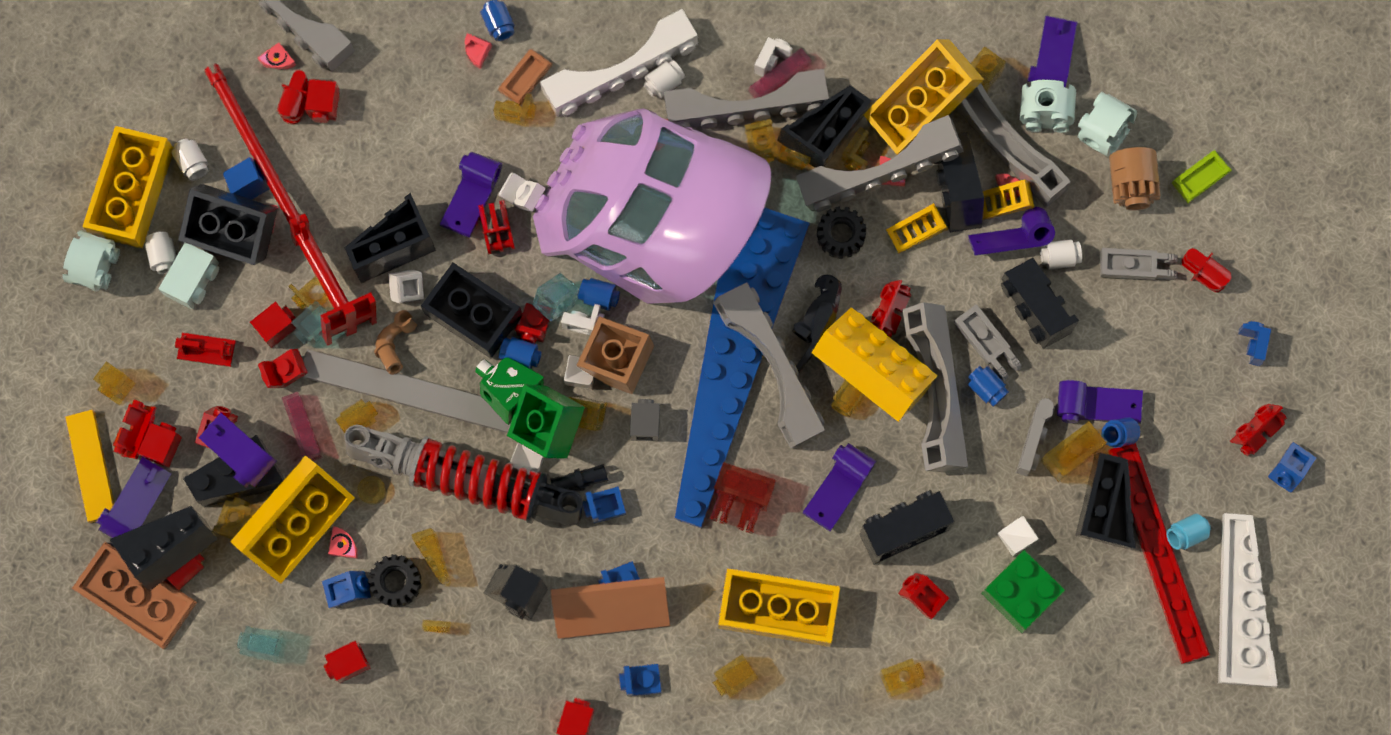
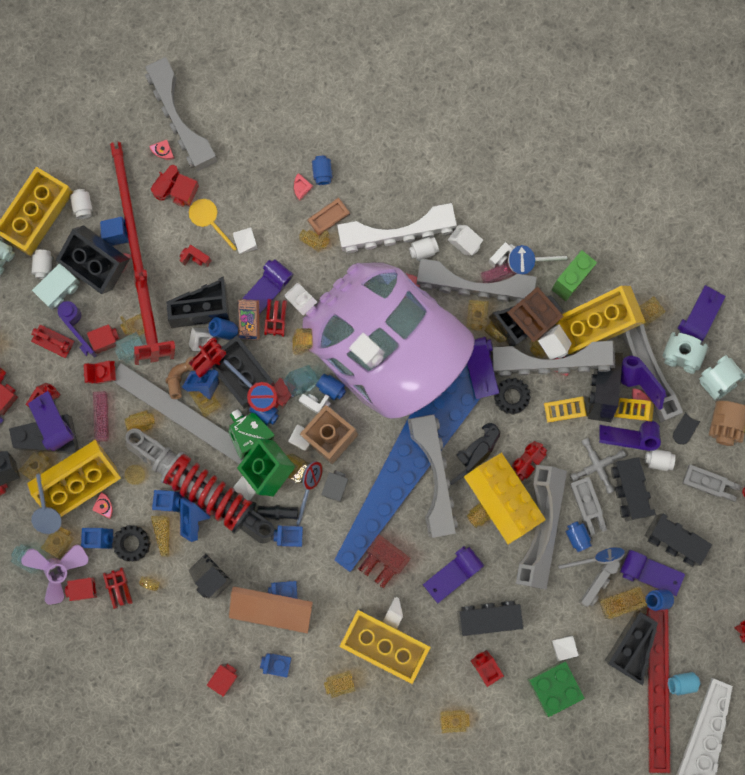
camera: 15 degrees right, 5 degrees up
(221, 308) = (70, 316): none -> dark purple door
(271, 580) = (45, 518): none -> sand blue piece
(300, 619) = (58, 550): none -> clear yellow brick
(323, 624) = (73, 558): none -> lavender piece
(358, 123) = (204, 213): none -> yellow piece
(368, 179) = (198, 256): none -> red bracket
(393, 642) = (117, 586): none -> red arm
(423, 298) = (207, 357): none -> red arm
(424, 140) = (245, 240): none -> white slope
(427, 336) = (205, 384): none -> blue slope
(427, 509) = (166, 501): none -> blue bracket
(430, 261) = (222, 328): none -> blue brick
(447, 370) = (210, 408): none -> clear yellow slope
(461, 239) = (248, 319): none -> tile
(463, 519) = (189, 518): none -> blue slope
(508, 330) = (260, 395): none -> piece
(540, 243) = (302, 340): none -> clear yellow slope
(610, 421) = (310, 480): none -> sand blue piece
(634, 215) = (367, 350): none -> white brick
(715, 51) = (465, 240): none -> white brick
(778, 560) = (394, 614): none -> white slope
(791, 209) = (481, 369): none -> dark purple door
(799, 54) = (522, 259): none -> blue piece
(837, 114) = (535, 314): none -> reddish brown slope
(871, 52) = (574, 275): none -> bright green brick
(875, 143) = (555, 342): none -> white brick
(983, 288) = (598, 465): none -> light grey piece
(995, 151) = (636, 373): none -> dark purple door
(1029, 401) = (604, 557): none -> piece
(1081, 207) = (685, 429): none -> black piece
(1118, 349) = (677, 540): none -> black wedge

